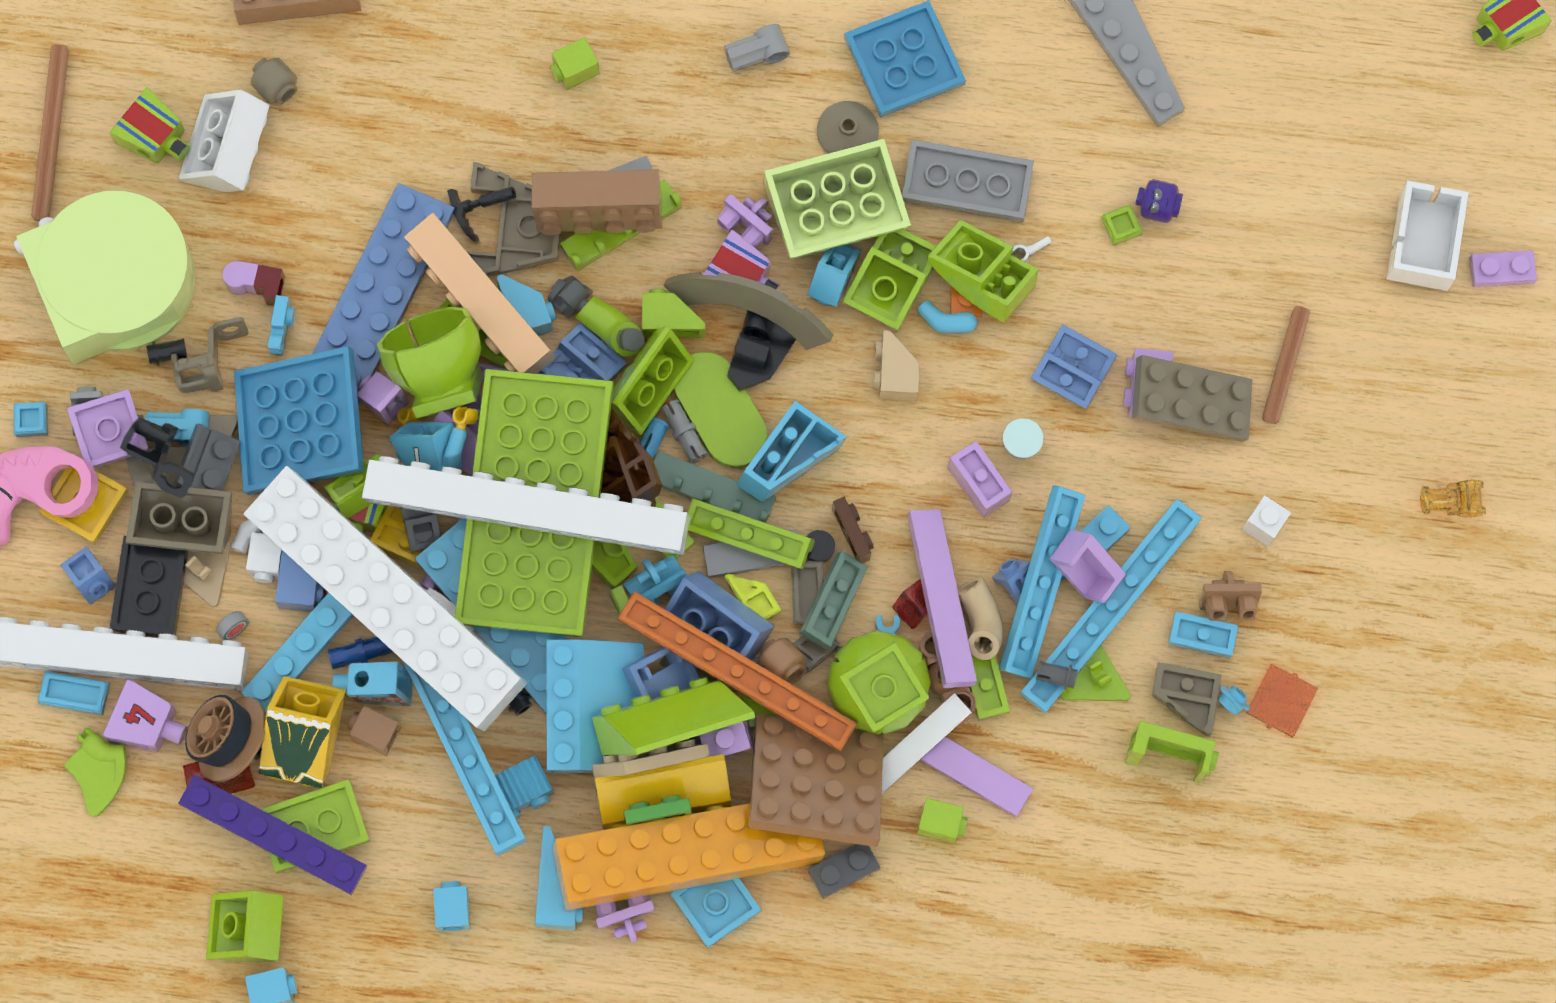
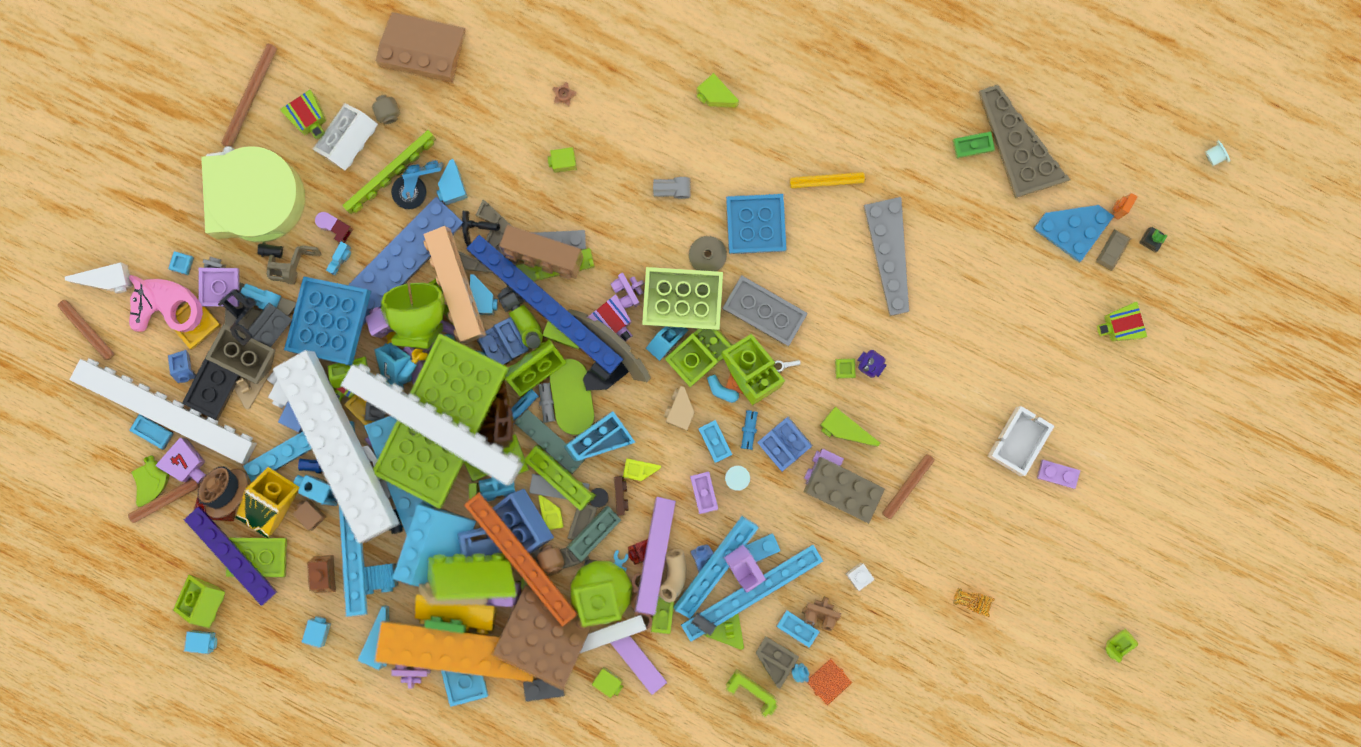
camera: 25 degrees right, 10 degrees up
(131, 792) = (163, 500): none -> nougat axle
(232, 625) = (251, 425): light grey tile -> none
(308, 181) = (384, 177): none -> lime plate
(353, 185) = (409, 189): none -> plate
(416, 158) = (451, 185): none -> medium azure slope
(430, 816) = (321, 574): none -> dark orange torso
(629, 280) = (544, 304): none -> blue plate
(866, 483) = (639, 470): none -> neon yellow tile
(966, 399) = (715, 441): none -> medium azure plate
(1012, 364) = (749, 430): none -> dark azure pin
(1155, 311) = (842, 427): none -> lime slope

